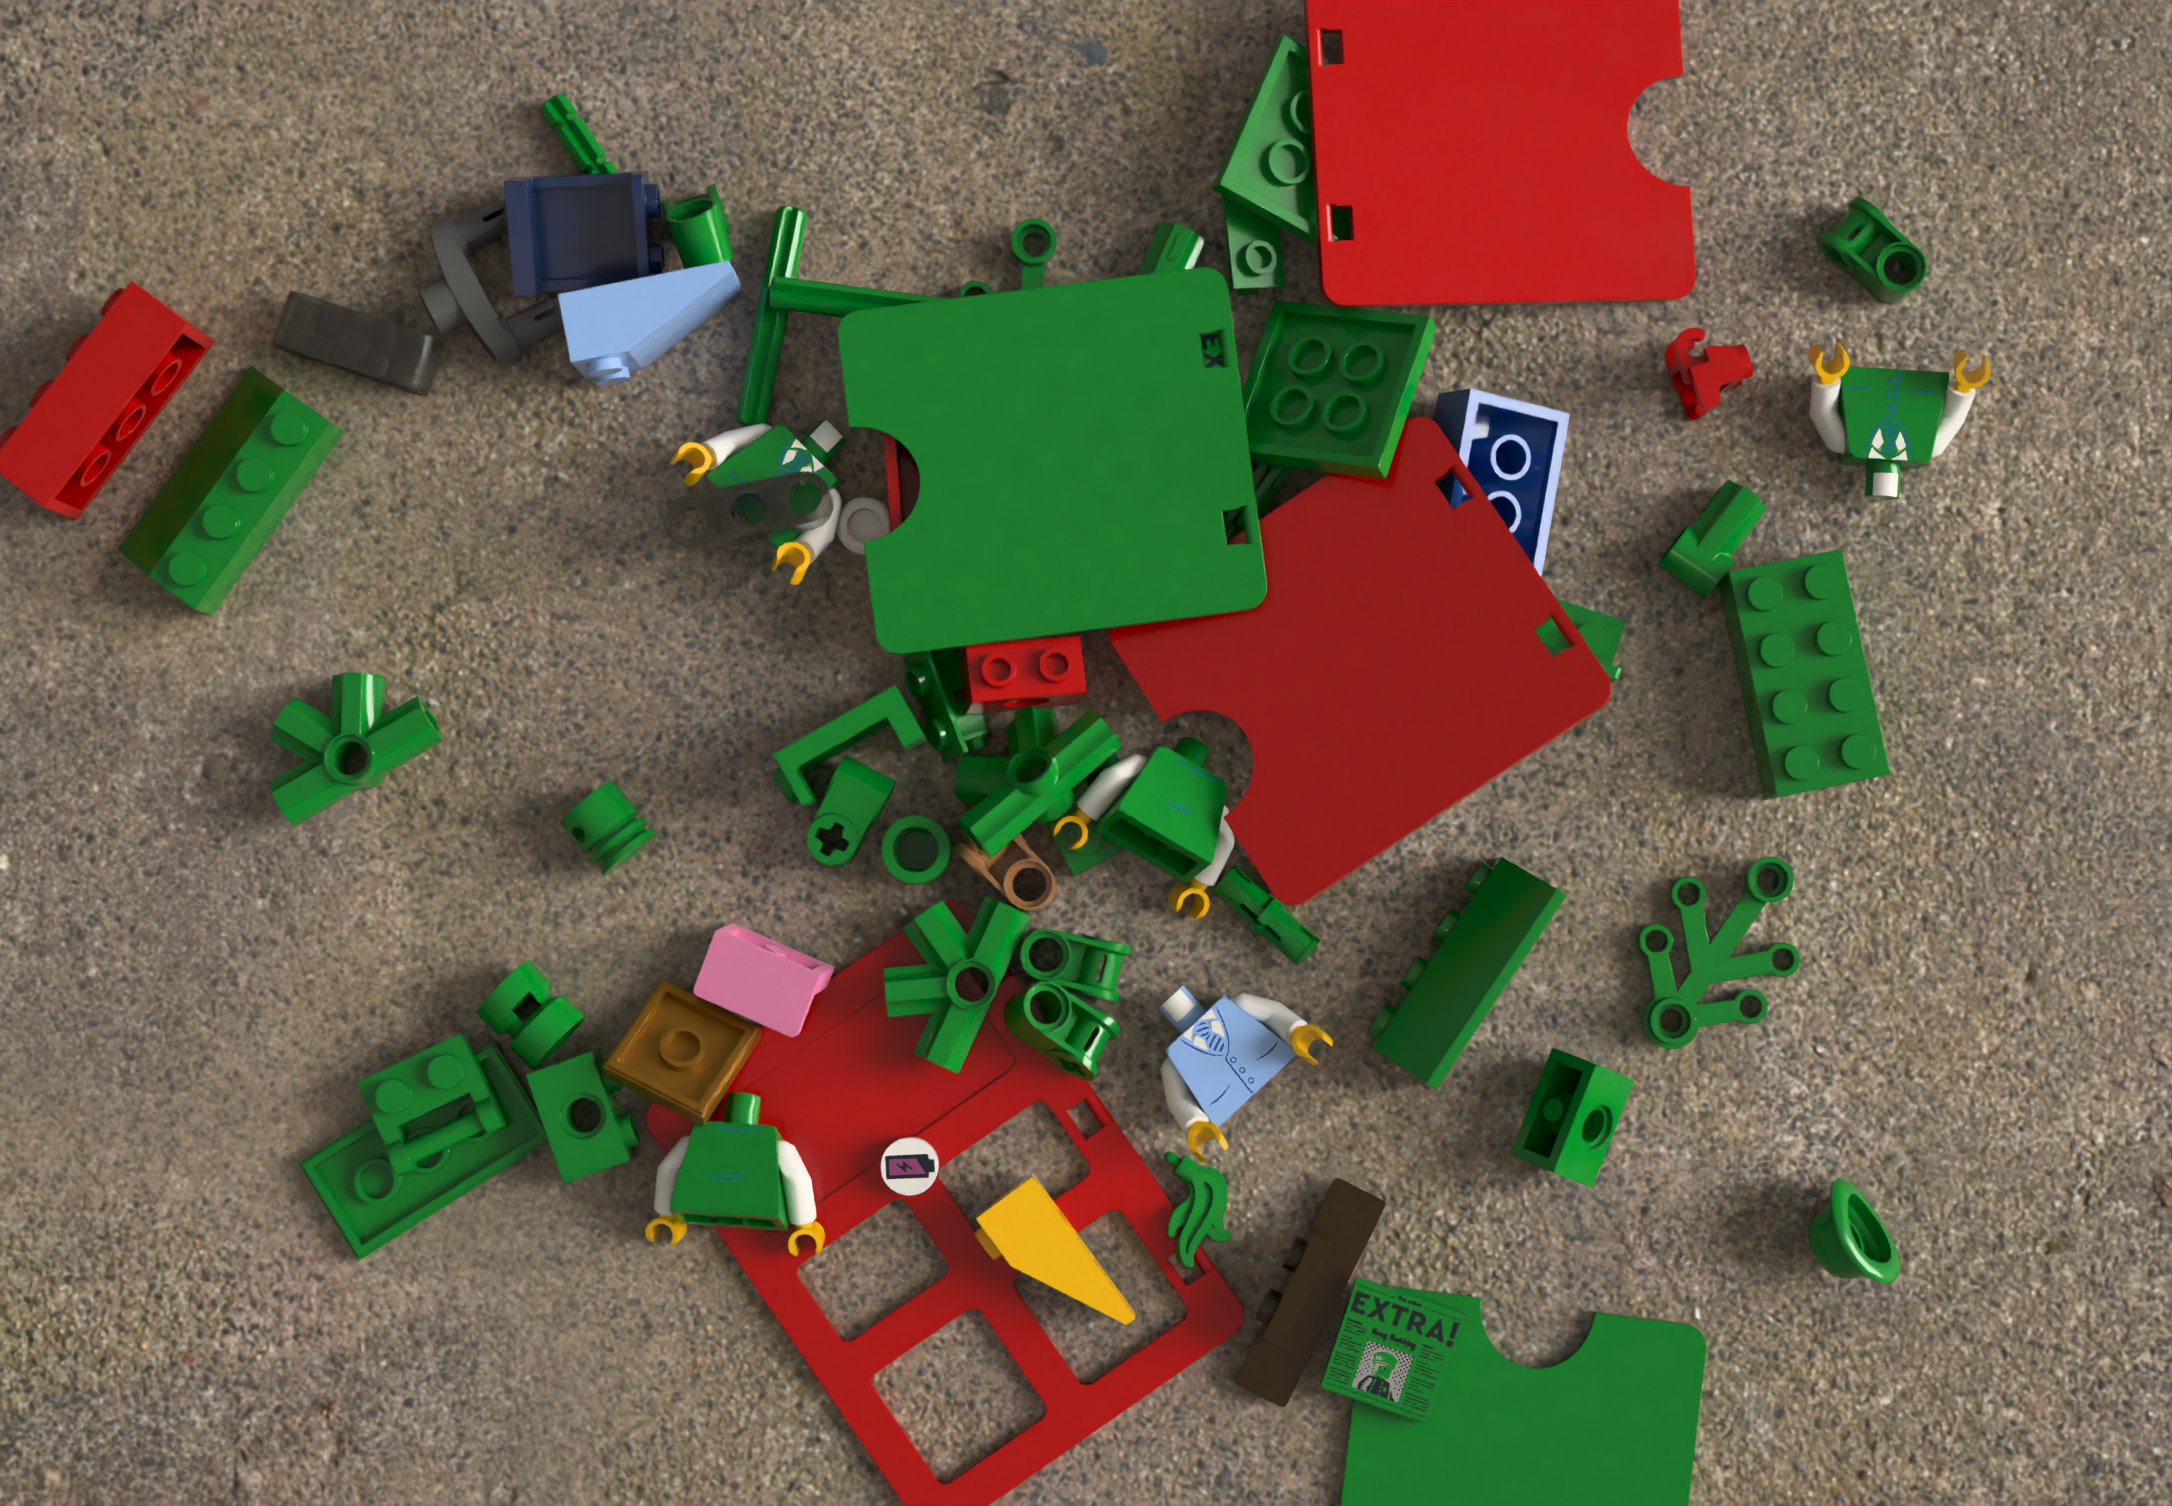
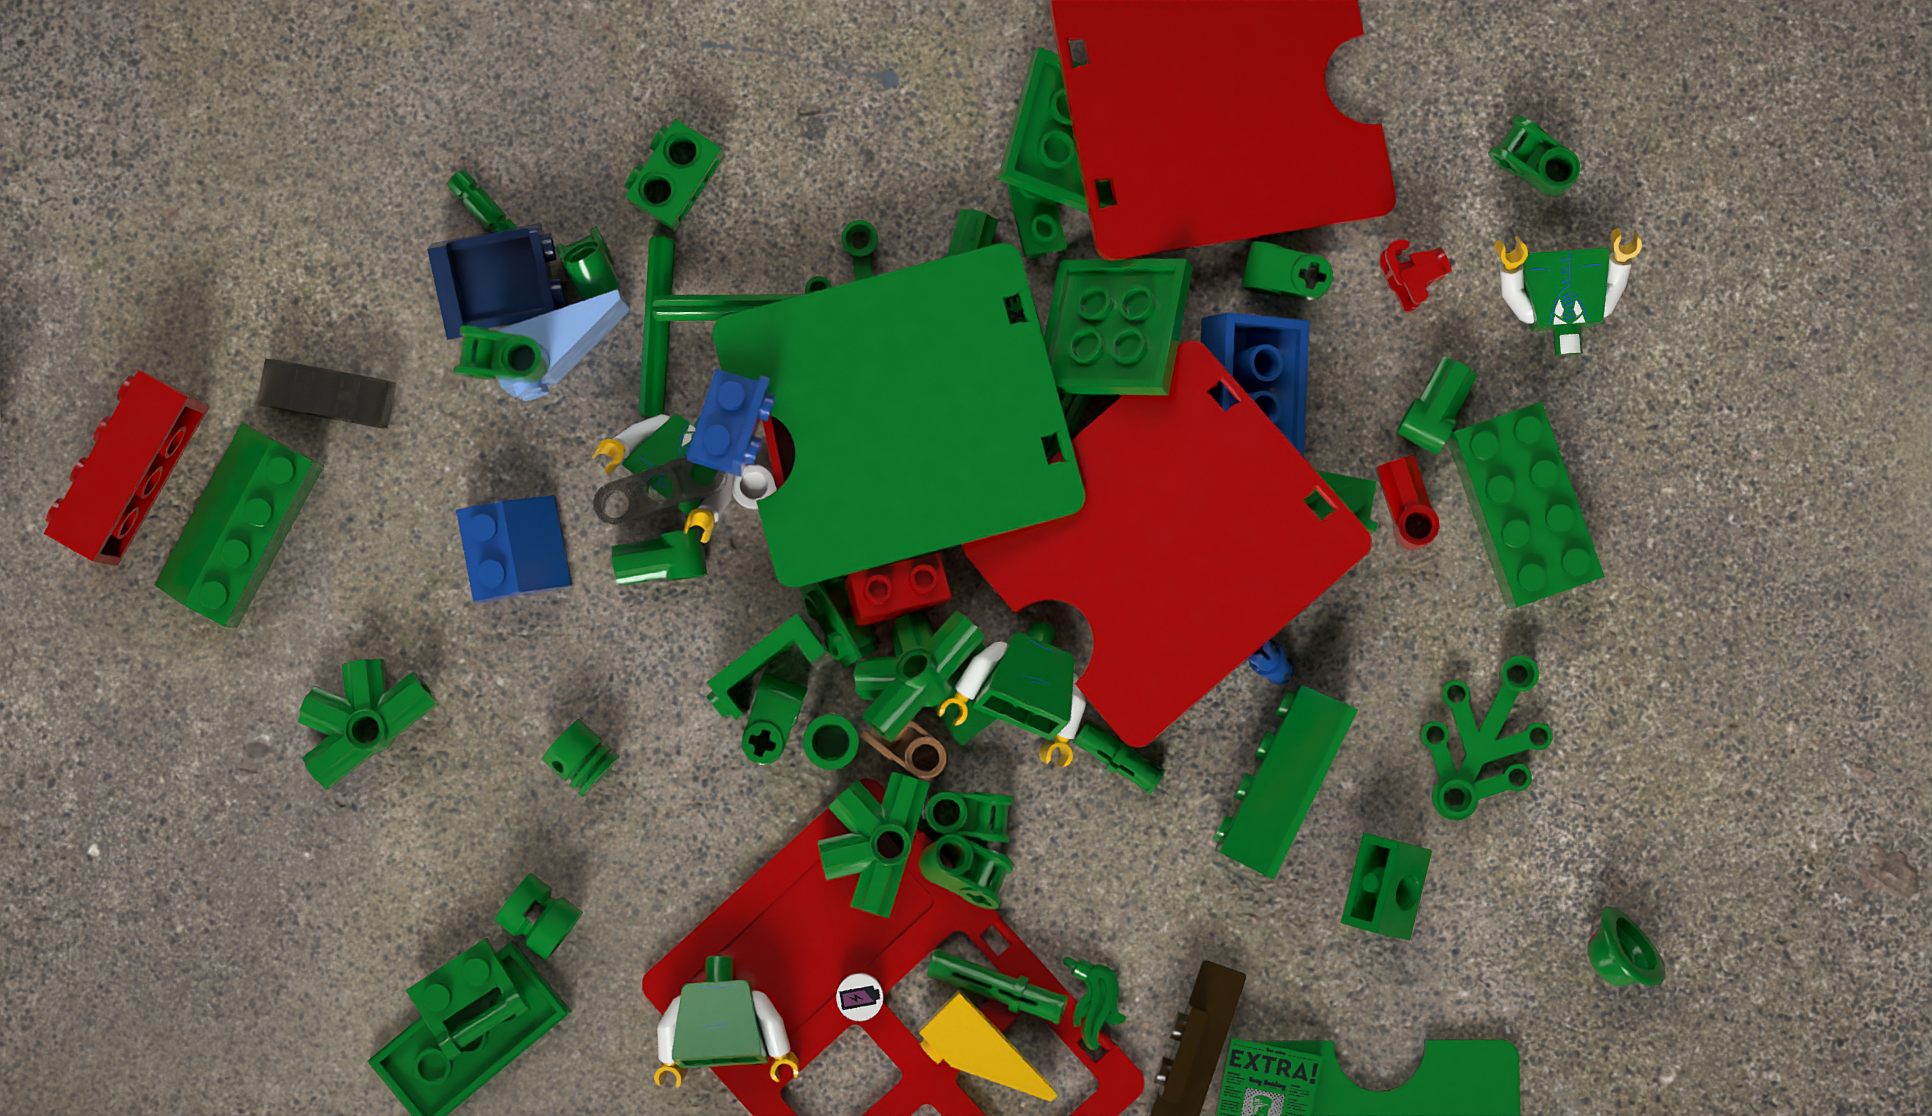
camera: 10 degrees left, 0 degrees up
(460, 298) = (402, 343): dark grey connector -> none
(560, 562) = (513, 548): none -> blue slope
(564, 319) = (491, 356): none -> green piece
(575, 1149) = (590, 1019): green brick -> none
(682, 1052) = (664, 930): pearl gold tile -> none
(753, 598) = (669, 557): none -> green piece
(761, 978) = (720, 862): bright pink panel -> none
(830, 142) = (685, 180): none -> green brick
(844, 439) = (730, 421): none -> blue bracket
(1084, 1178) = (998, 986): none -> green pin
(1226, 1057) = (1102, 875): torso -> none
(1468, 825) = (1272, 663): none -> blue pin
(1537, 347) = (1276, 272): none -> green piece
(1660, 646) = (1405, 498): none -> red piece

